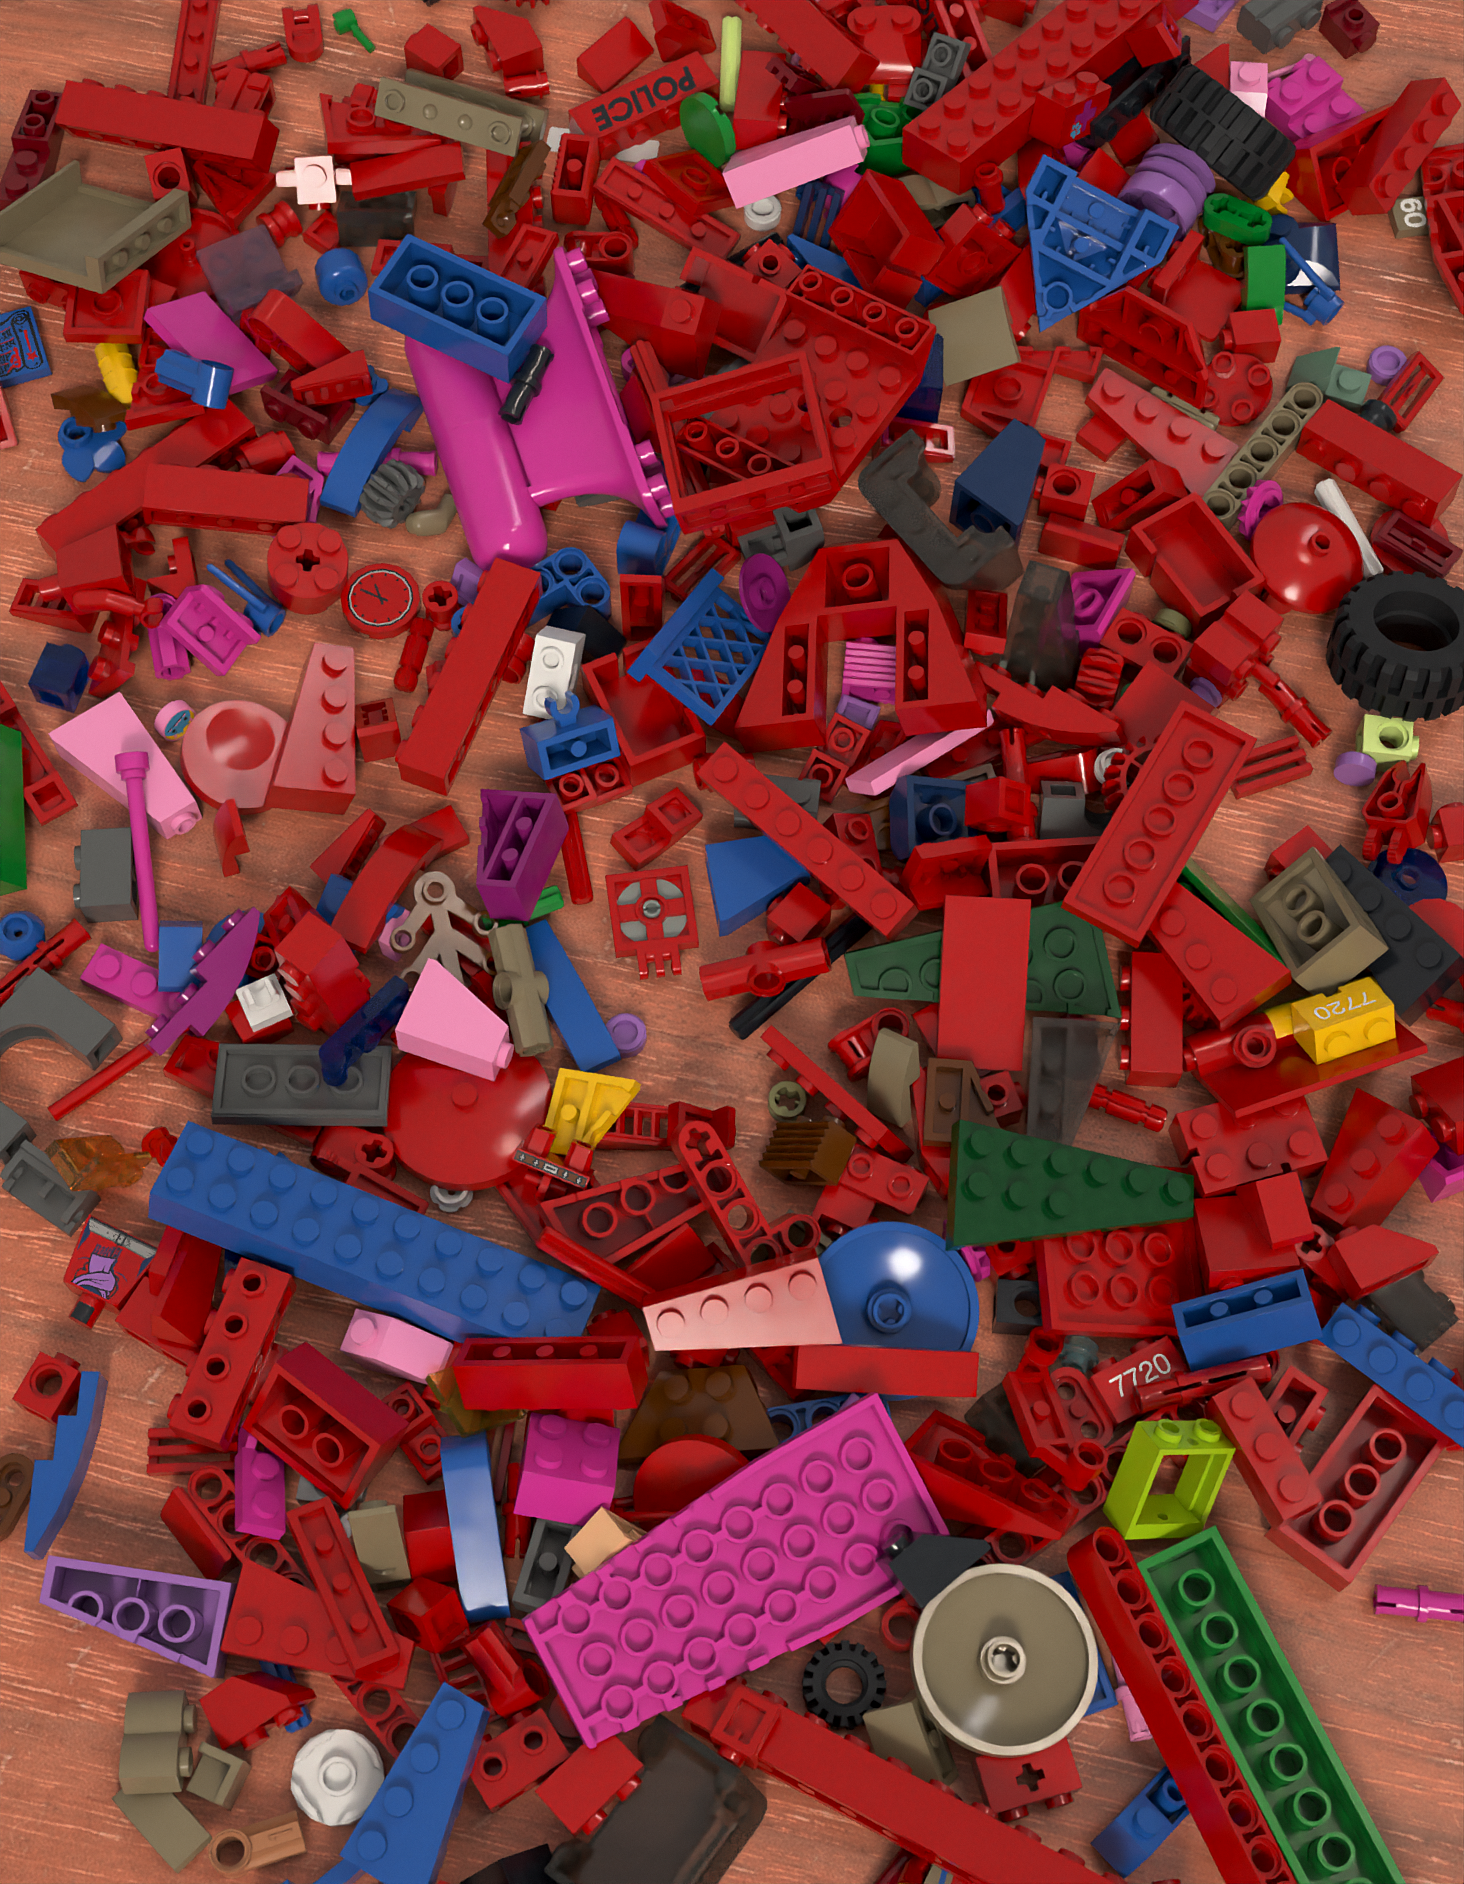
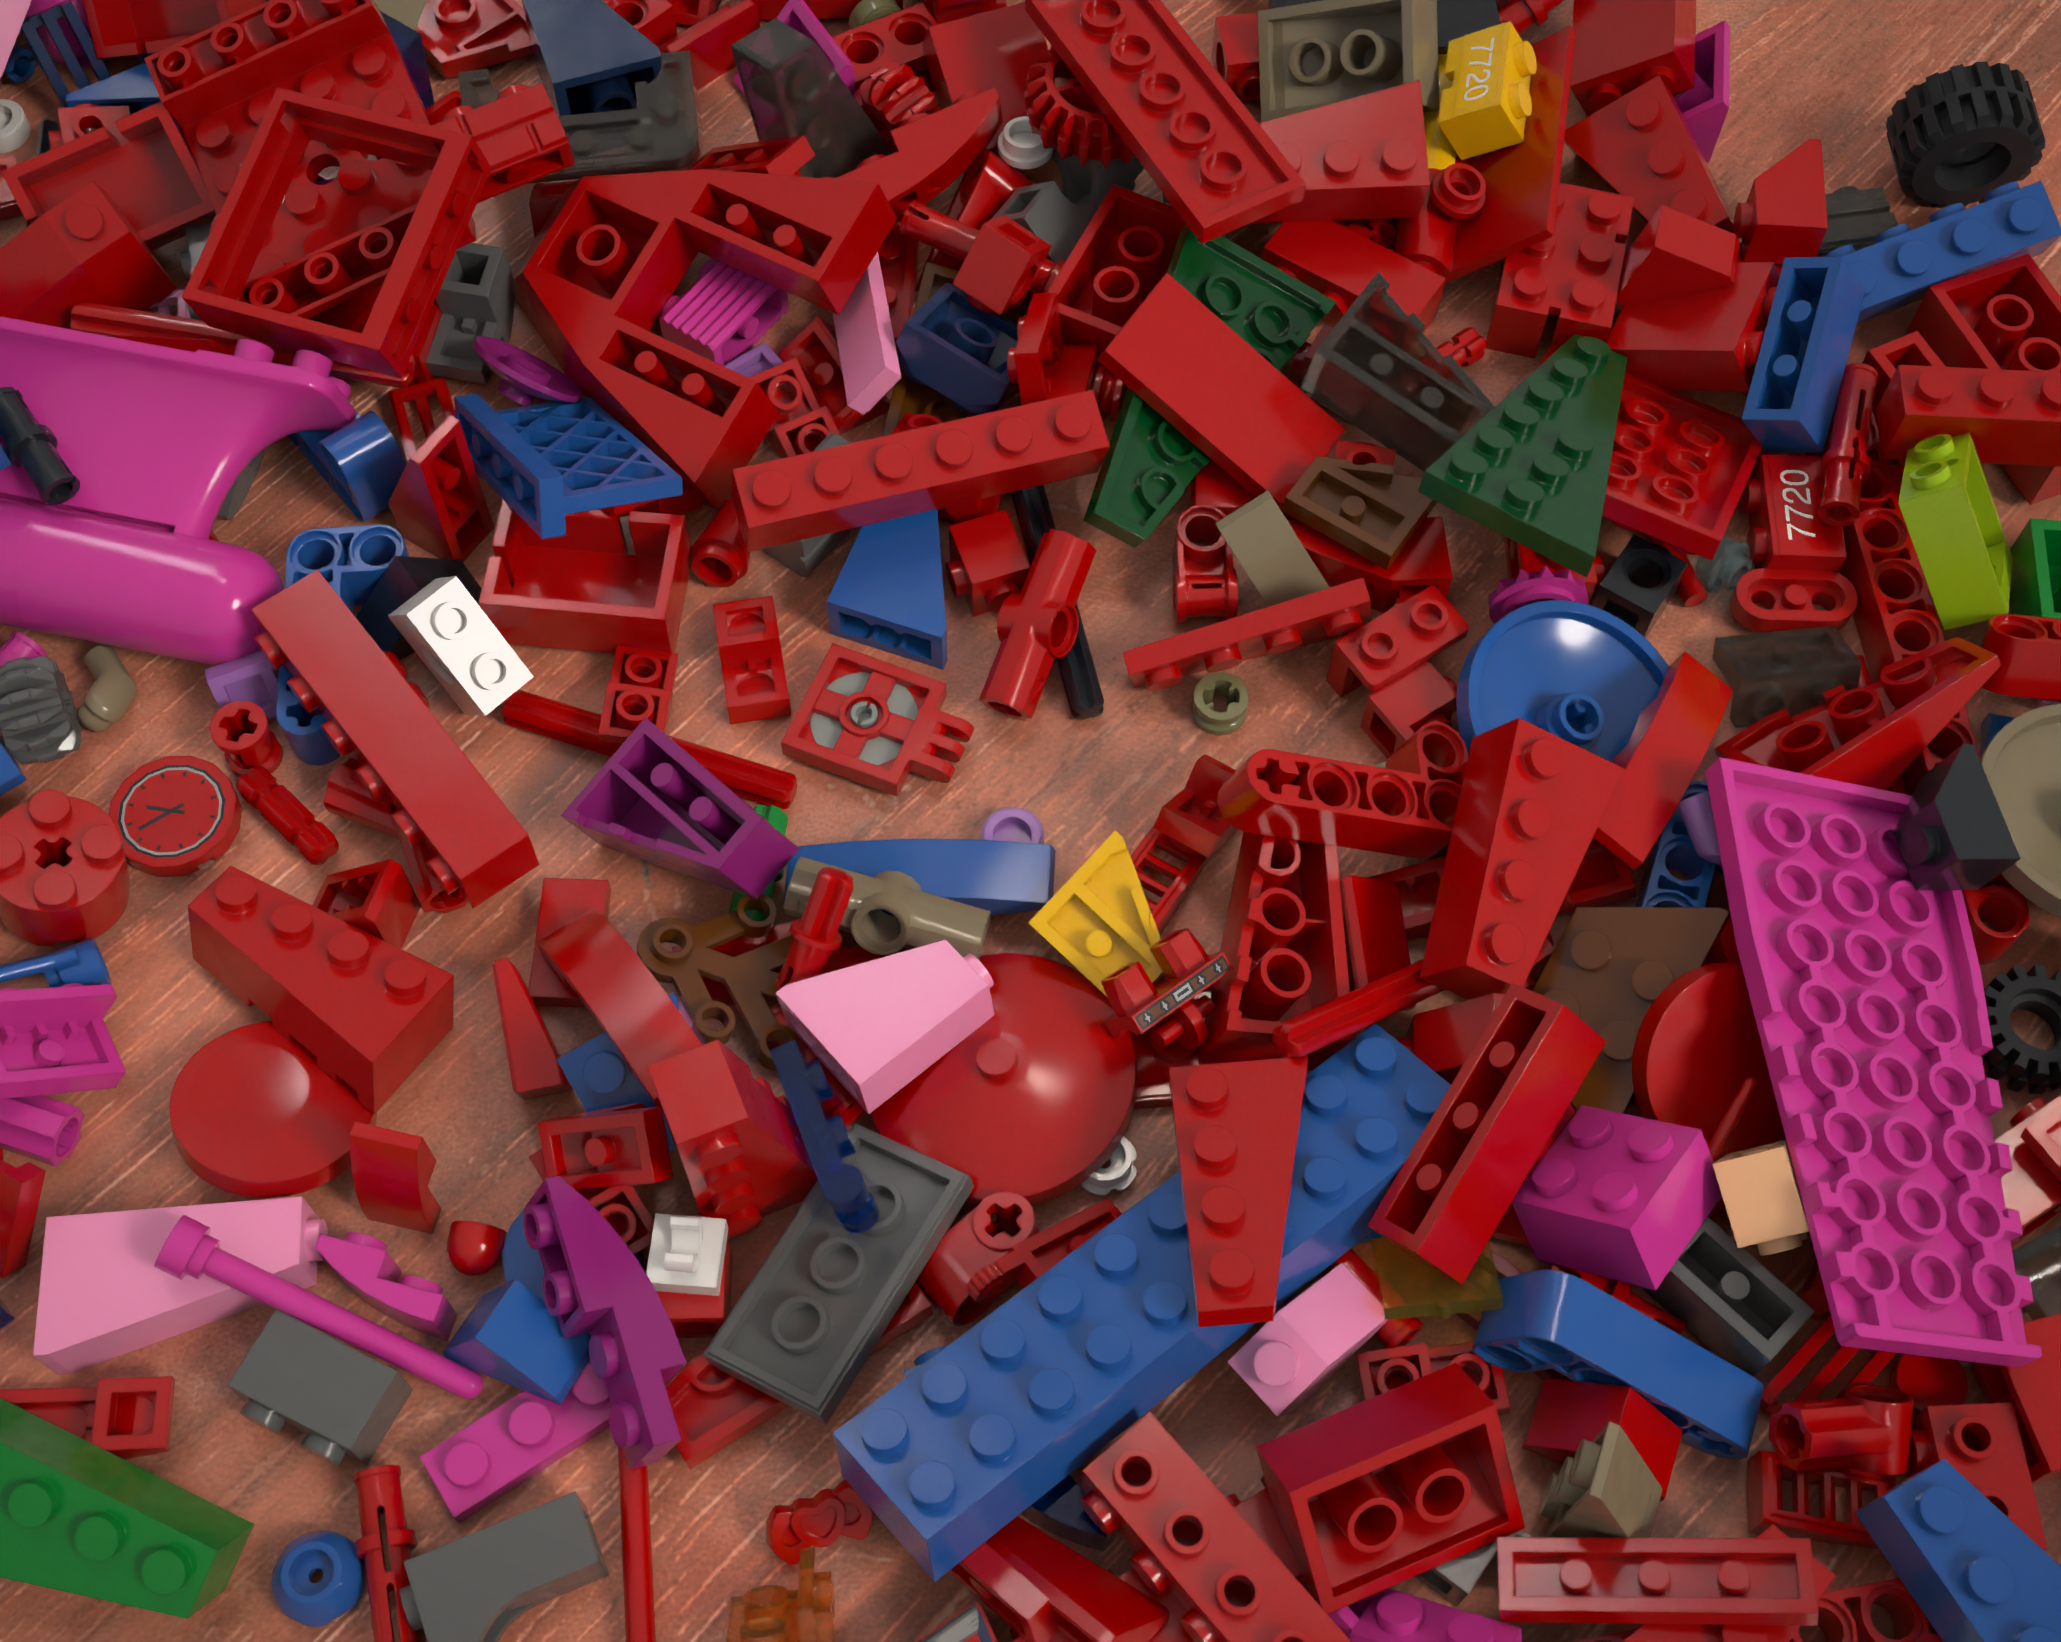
camera: 60 degrees left, 5 degrees down
(174, 719) = (144, 1171): tile -> none
(176, 868) = (375, 1278): none -> dark pink slope
(222, 900) = (474, 1246): none -> red hinge
(428, 1614) = (1727, 1490): red brick -> none
(453, 1243) = (1236, 1175): none -> red wing
(479, 958) = (817, 930): none -> red axle
(569, 739) = (572, 671): blue brick -> none
(808, 1151) = (1319, 694): reddish brown brick -> none
(875, 484) = (516, 136): none -> red brick
(1043, 1418) = (1804, 624): red plate -> none

